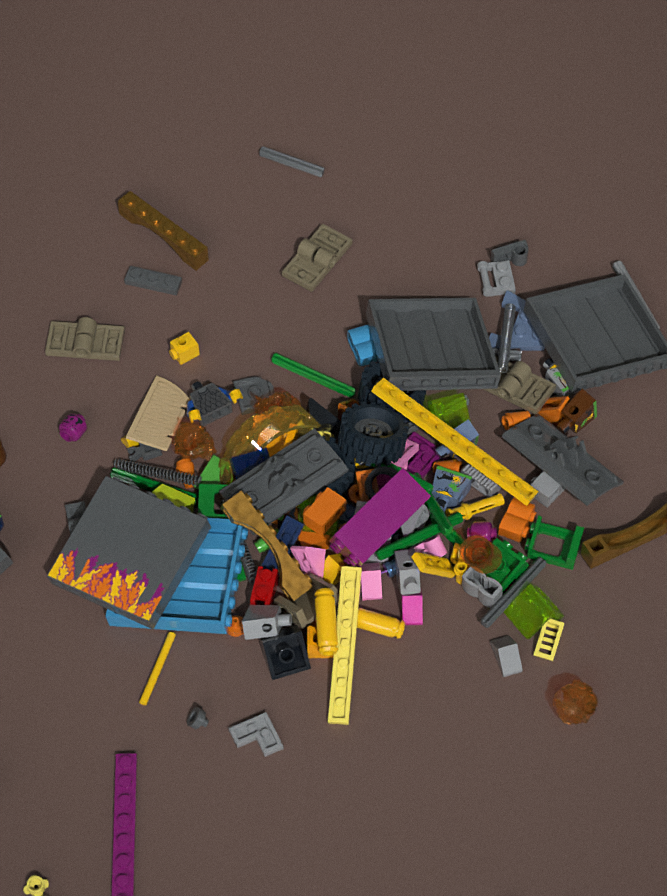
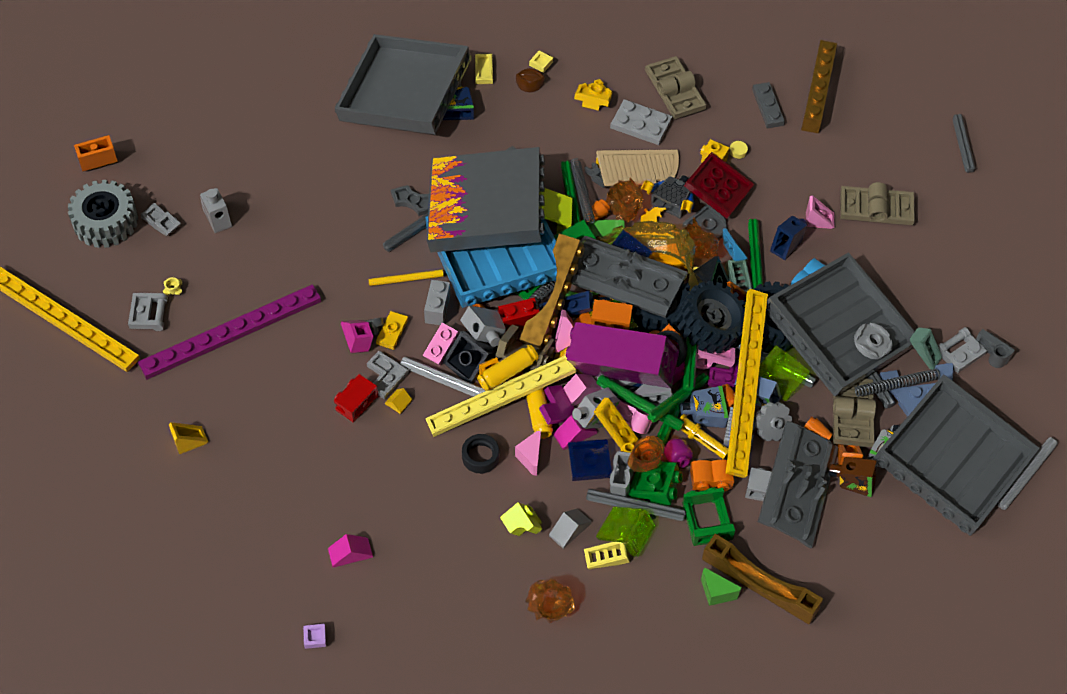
camera: 60 degrees right, 0 degrees up
(49, 409) = (593, 95): none -> yellow plate
(63, 625) = (406, 197): none -> dark grey tile
(72, 427) = (586, 116): magenta head -> none
(104, 388) = (641, 122): none -> light grey plate
(105, 638) = (405, 234): none -> dark grey axle
(188, 326) = (738, 149): none -> light yellow tile
(202, 736) = (358, 335): none -> dark pink slope
(207, 652) = (437, 302): none -> light grey brick
(215, 710) = (392, 330): none -> yellow plate
(216, 433) = (652, 214): none -> yellow piece
(224, 361) = (718, 185): none -> dark red plate
(255, 669) = (441, 344): none -> bright pink plate
(272, 770) = (355, 397): none -> red brick
(292, 686) = (441, 377): none -> light grey axle
(293, 736) = (399, 400): none -> yellow slope
(296, 384) = (732, 246): none -> dark azure slope
(300, 305) = (818, 214): none -> bright pink slope
(311, 329) = (794, 231): none -> dark blue torso
(325, 391) = (730, 265): none -> sand green slope
(386, 603) = (559, 408): none -> magenta tile
(395, 677) = (482, 440): none -> black tyre
(416, 650) = (528, 452): none -> bright pink slope
(433, 849) = (349, 550): none -> dark pink slope
(448, 606) = (589, 460): none -> clear blue plate
(462, 337) = (869, 349): none -> light grey tile
(482, 687) = (521, 519): none -> neon yellow brick
(484, 298) = (925, 345): none -> sand green slope
(493, 445) = (772, 420): none -> light grey plant
(625, 570) = (718, 588): none -> bright green slope

